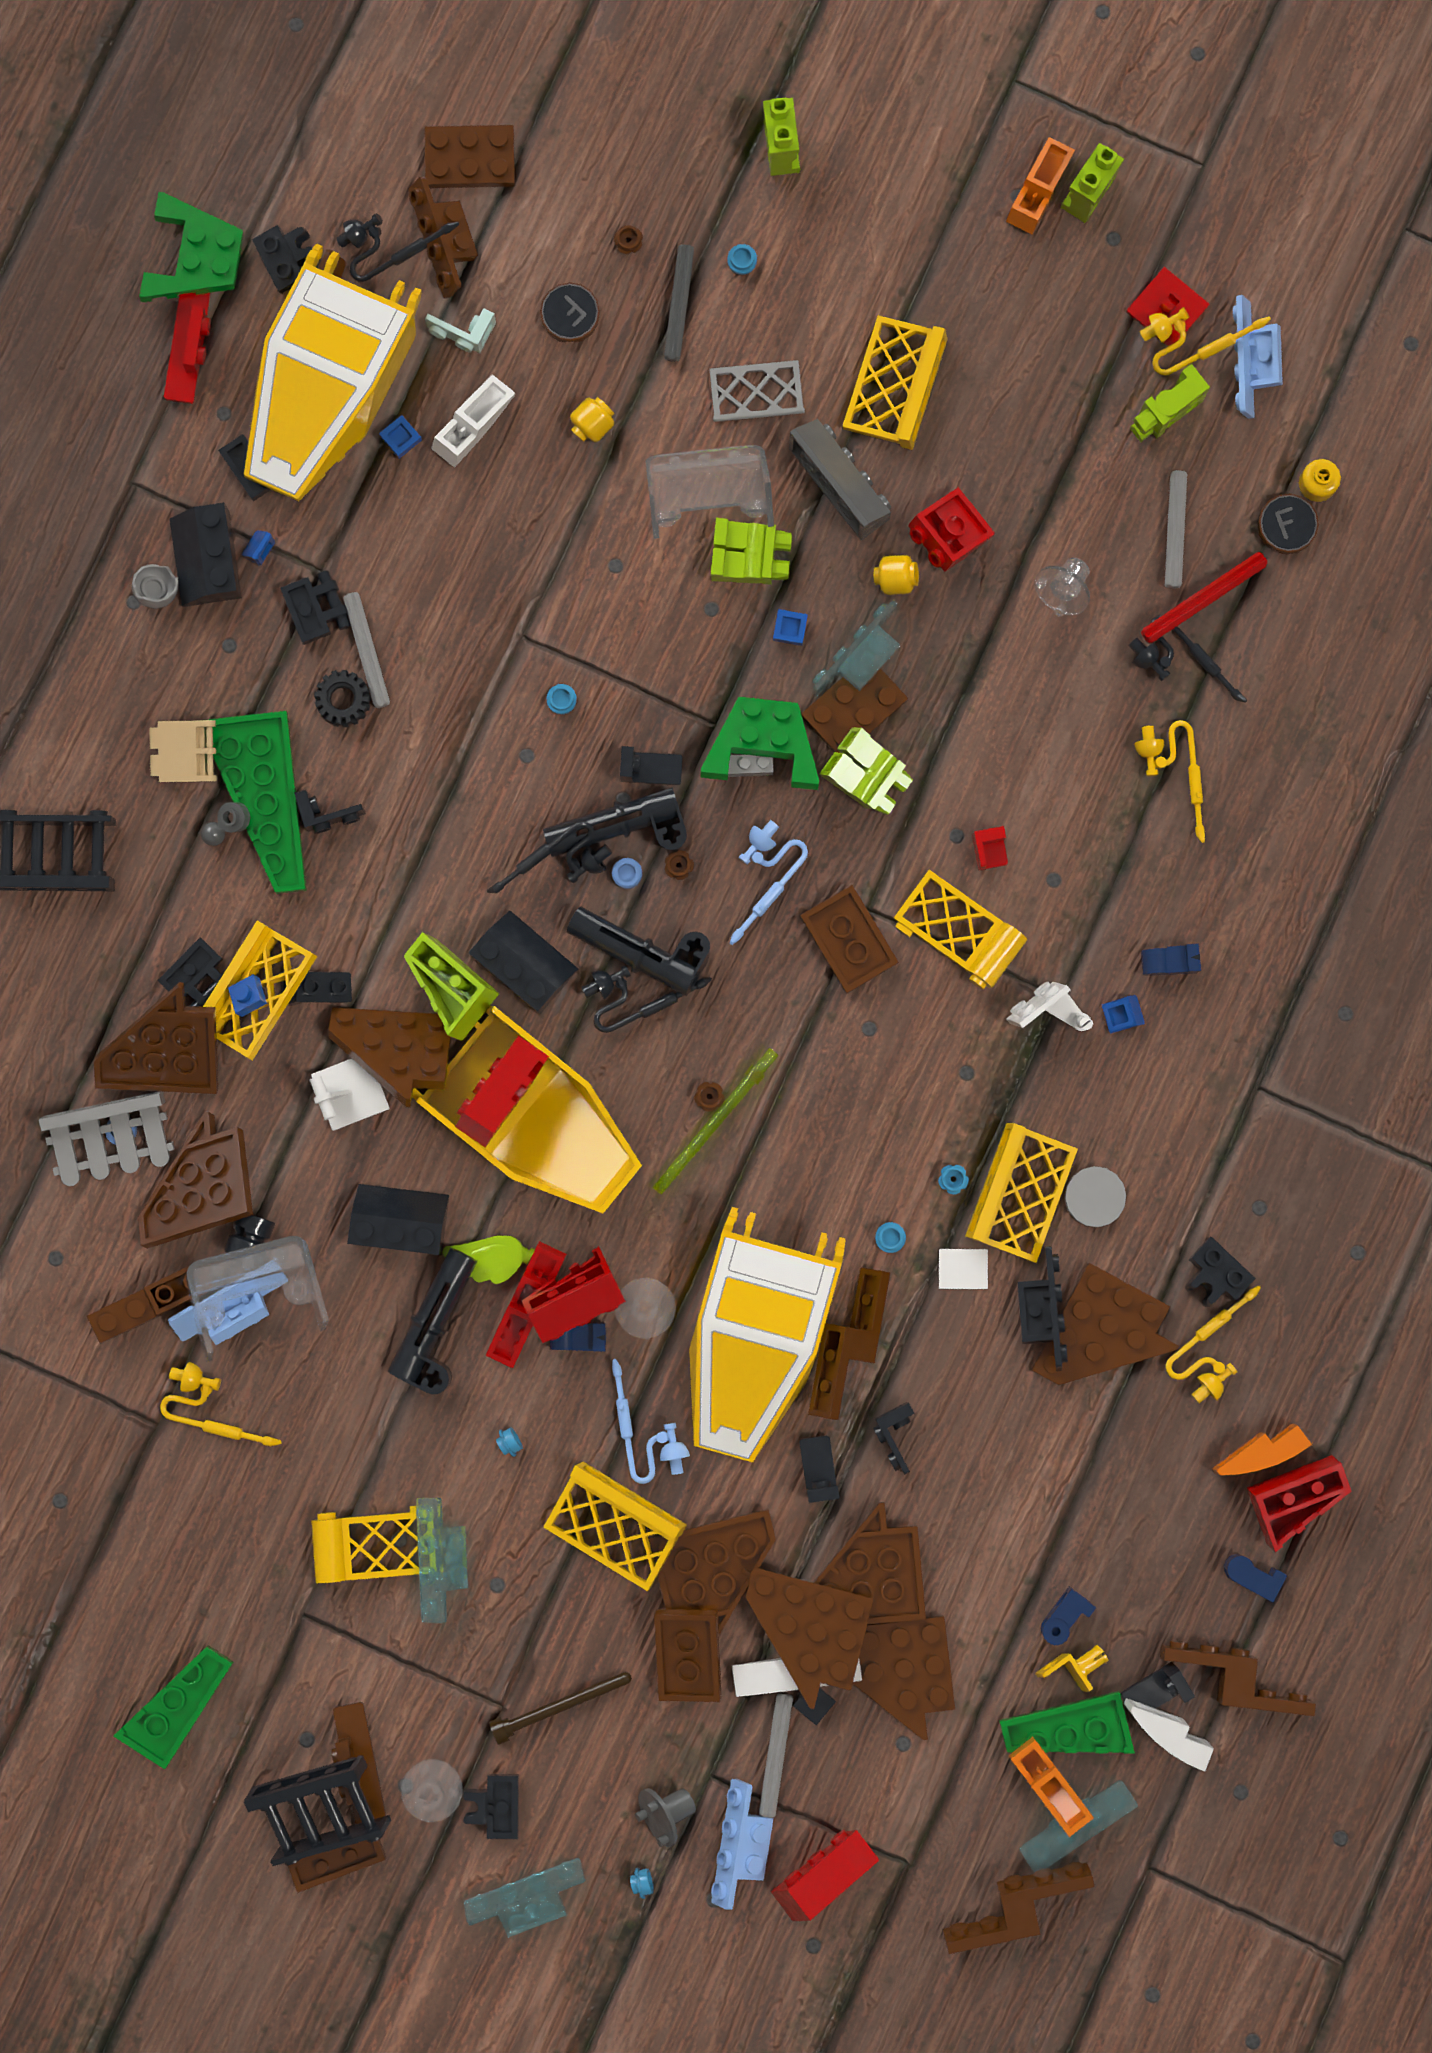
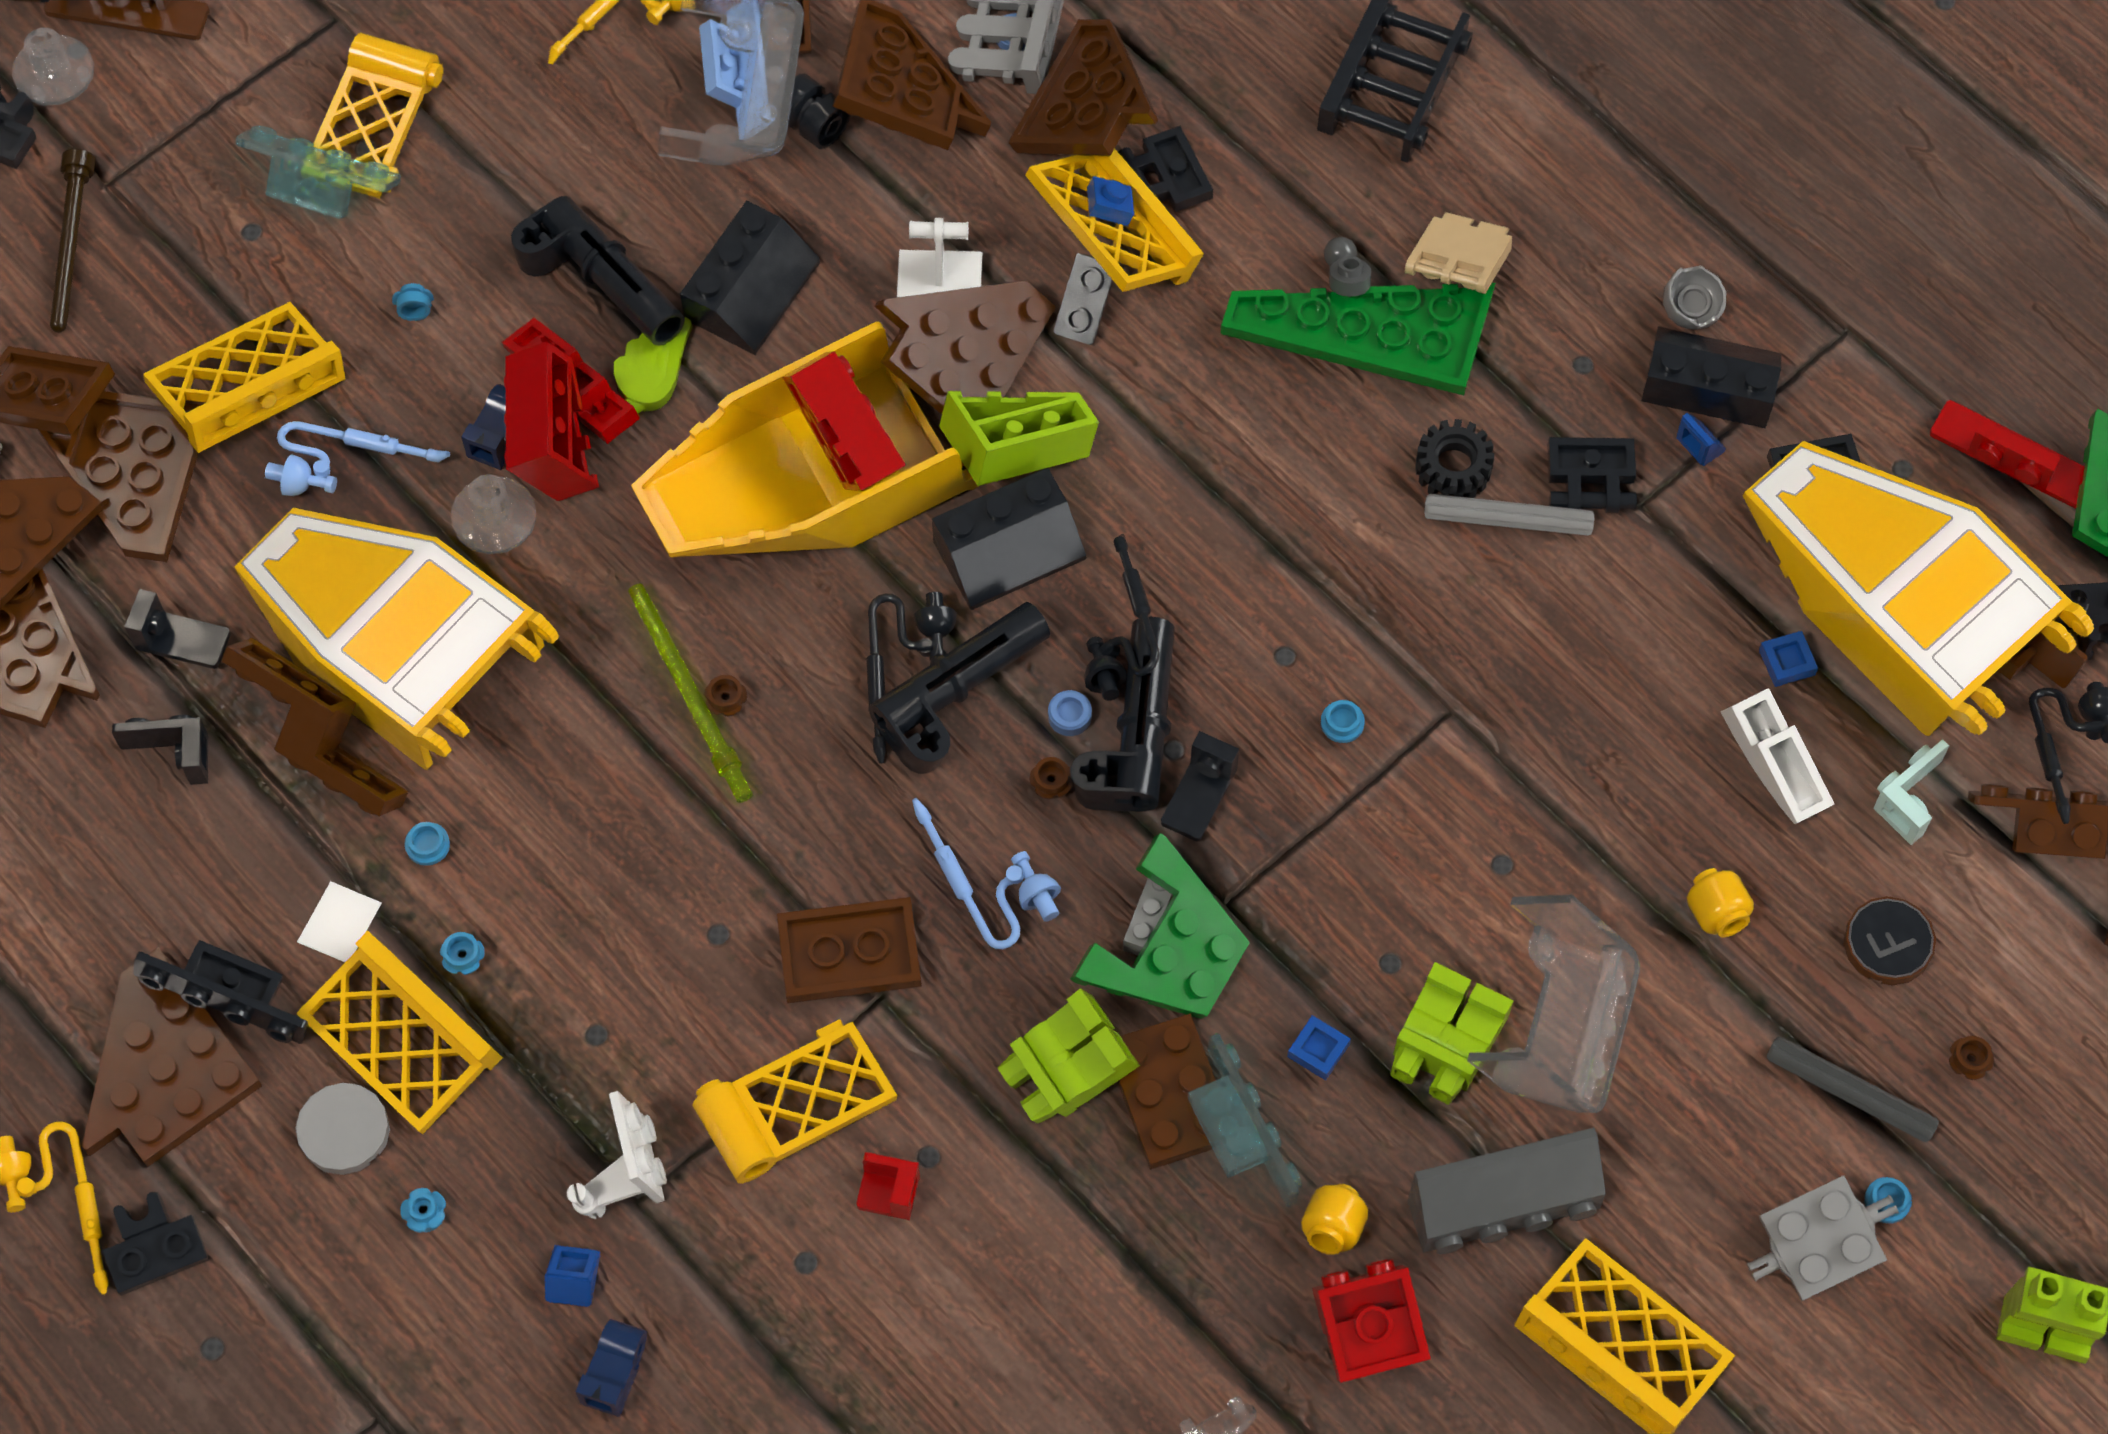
camera: 115 degrees right, 20 degrees down
(309, 808) = (1318, 366): black bracket -> none
(739, 373) = (1647, 1158): light grey window -> none
(785, 287) = (1822, 1238): none -> light grey plate
(1117, 1124) = (423, 1221): none -> dark azure plate

